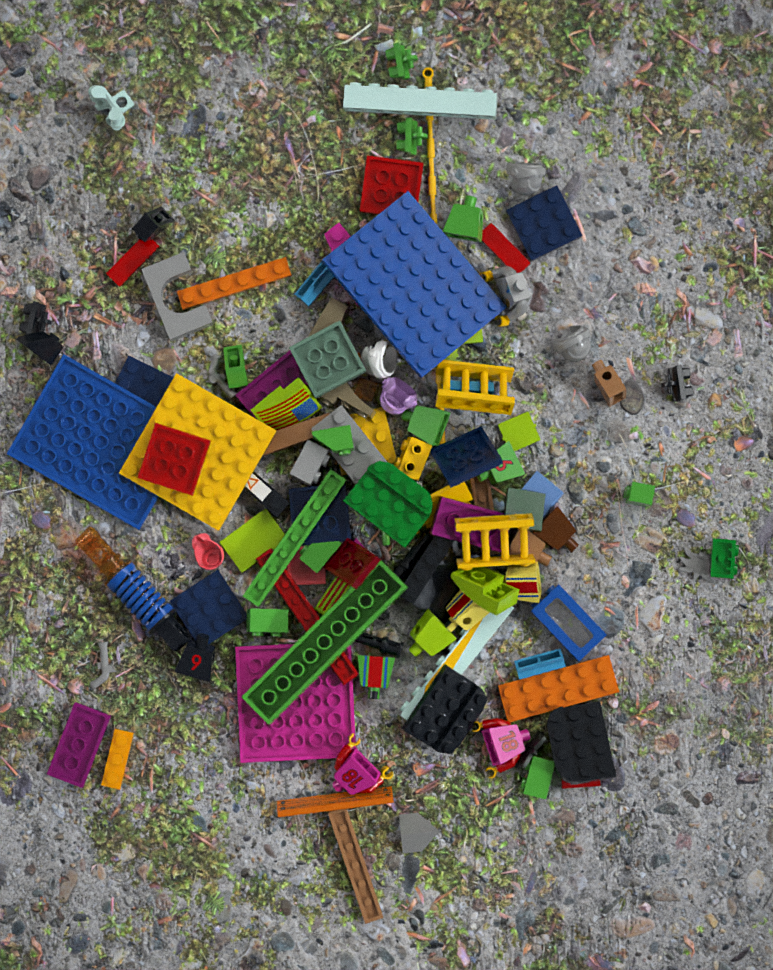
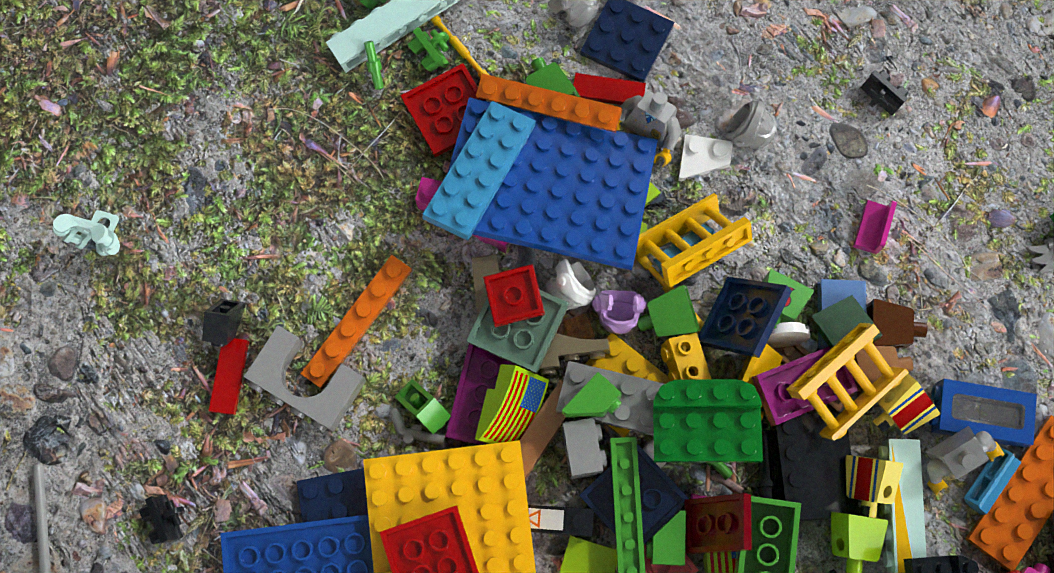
camera: 35 degrees left, 10 degrees down
(43, 345) = (189, 541): black slope -> none
(314, 284) = (443, 259): dark azure piece -> none
(336, 341) = (514, 295): none -> red tile
(364, 122) = (373, 65): none -> bright green bar
(375, 247) = (479, 170): none -> dark azure plate
(454, 232) = (549, 103): none -> orange plate
(483, 487) = (788, 334): none -> white tile
(486, 589) = (880, 440): lime slope -> none
(519, 431) = (767, 253): lime piece -> none
(528, 633) = (959, 456): none -> light grey torso
(529, 338) = (703, 155): none -> white wing
(598, 462) = (874, 226): none -> dark pink panel
(612, 389) = (820, 139): medium nougat torso -> none
(639, 494) = (945, 224): bright green brick -> none

